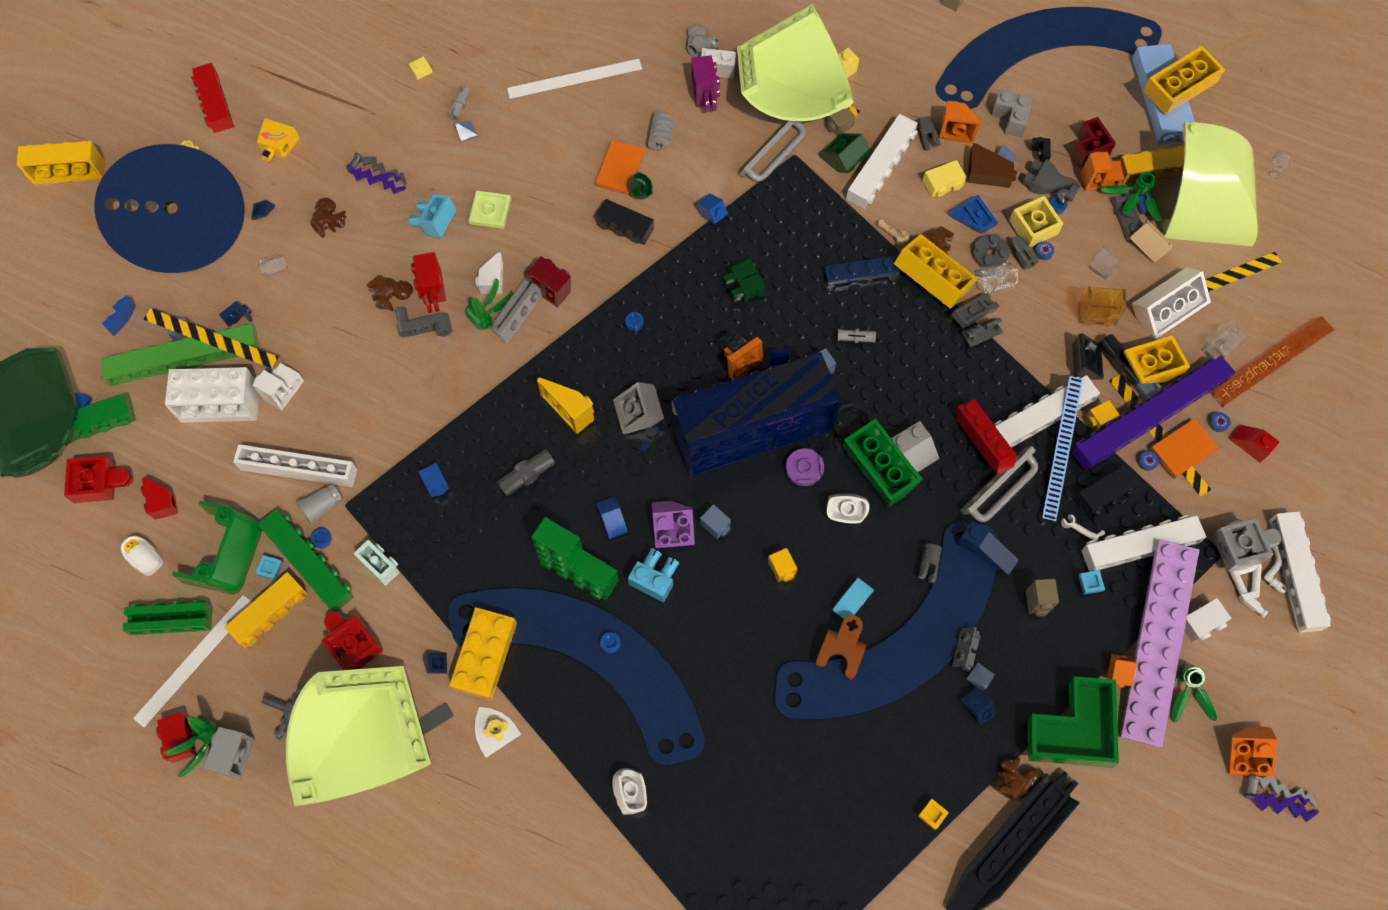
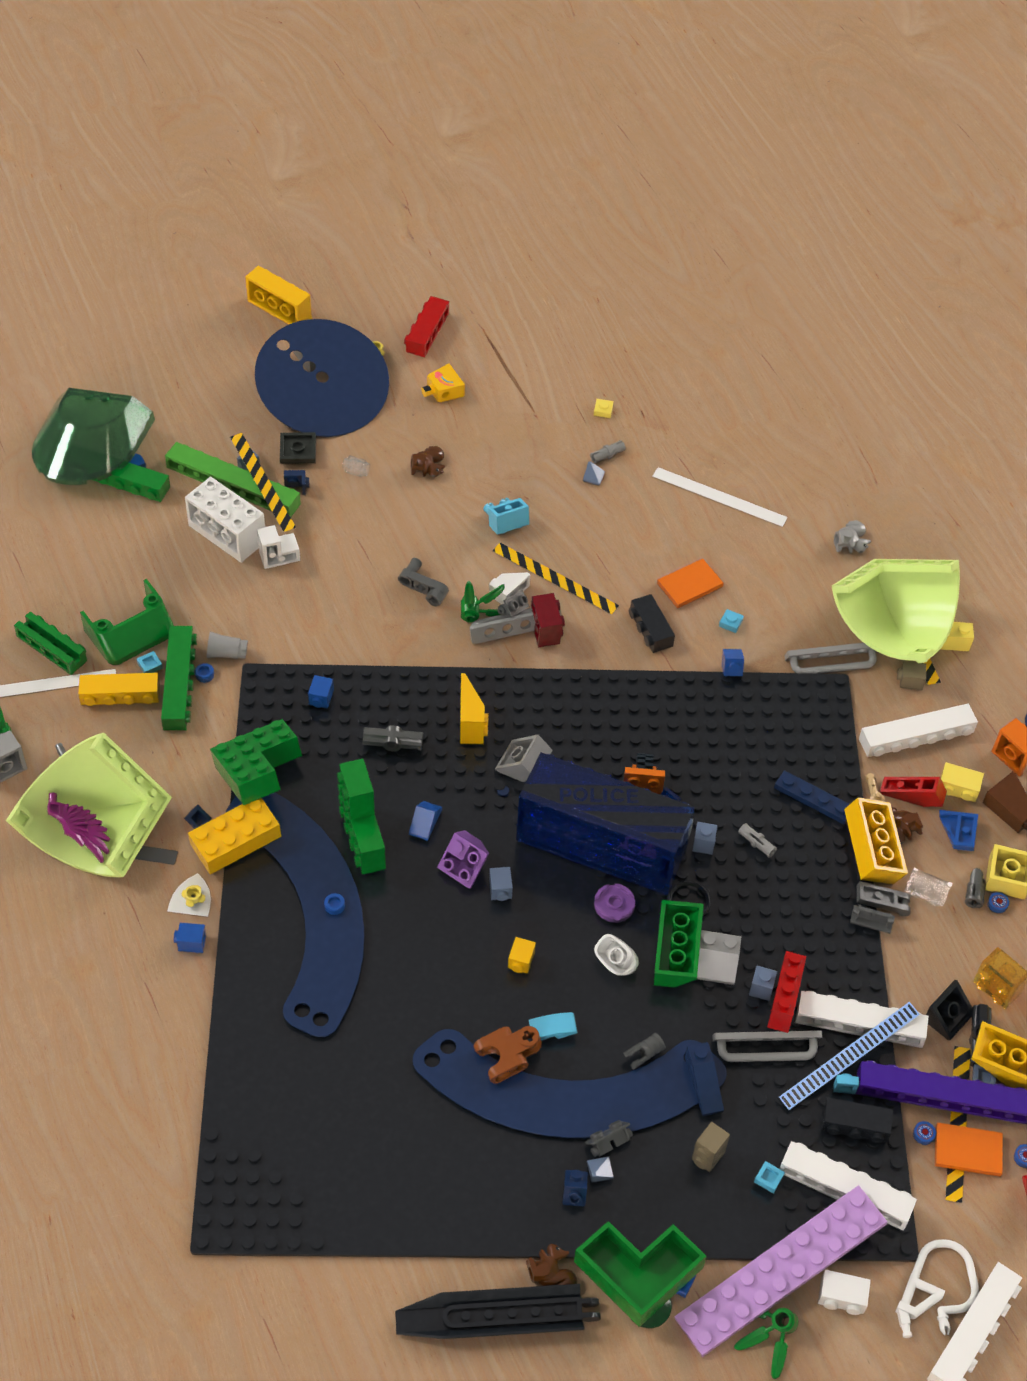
camera: 40 degrees right, 15 degrees down
(93, 479) = (93, 515): red brick -> none
(124, 310) = (224, 423): blue slope -> none
(141, 555) = (75, 589): white piece -> none
(159, 500) = (122, 562): red slope -> none
(208, 285) = (297, 448): none -> pearl dark grey plate
(262, 209) = (387, 424): dark blue slope -> none
(295, 465) = (235, 609): white brick -> none
(349, 641) = (154, 751): red brick -> none
(354, 753) = (80, 826): none -> magenta animal
(376, 562) = (224, 716): light aqua brick -> none
(383, 176) = (482, 449): piece -> none
(387, 288) = (422, 540): reddish brown animal -> none
(428, 280) = (456, 555): red brick -> none
(436, 583) = (250, 760): none -> green piece
(490, 209) = (555, 541): yellowish green plate -> none
(511, 287) = (514, 604): none -> dark grey hinge
(516, 240) = (556, 578): none -> sticker
(527, 764) = (190, 937): none -> blue brick
(629, 791) = (241, 1013): white piece -> none
(634, 321) = (585, 697): blue tile -> none
(640, 186) = (690, 606): dark green hair -> none
(651, 581) = (408, 887): medium azure brick -> none
(660, 130) = (748, 578): light grey piece -> none
(677, 175) = (731, 621): none -> medium azure plate
(705, 82) = (820, 566): magenta brick -> none
(725, 61) = (845, 559): white brick -> none
(746, 280) = (706, 732): dark green hips -> none
(845, 152) = (892, 702): dark green slope -> none
(920, 209) = (915, 790): none -> red slope
(928, 131) = (983, 737): dark grey hinge -> none
(933, 814) = (454, 1231): yellow plate -> none
(960, 442) = (763, 983): none -> sand blue brick
(990, 242) = (949, 858): dark grey plate -> none
(1077, 469) = (846, 1084): none -> medium azure plate
(1084, 531) = (806, 1139): white piece -> none
(1101, 415) = (915, 1059): yellow brick -> none
(1122, 670) = (725, 1264): orange brick -> none
(1245, 544) = (940, 1259): light grey brick -> none

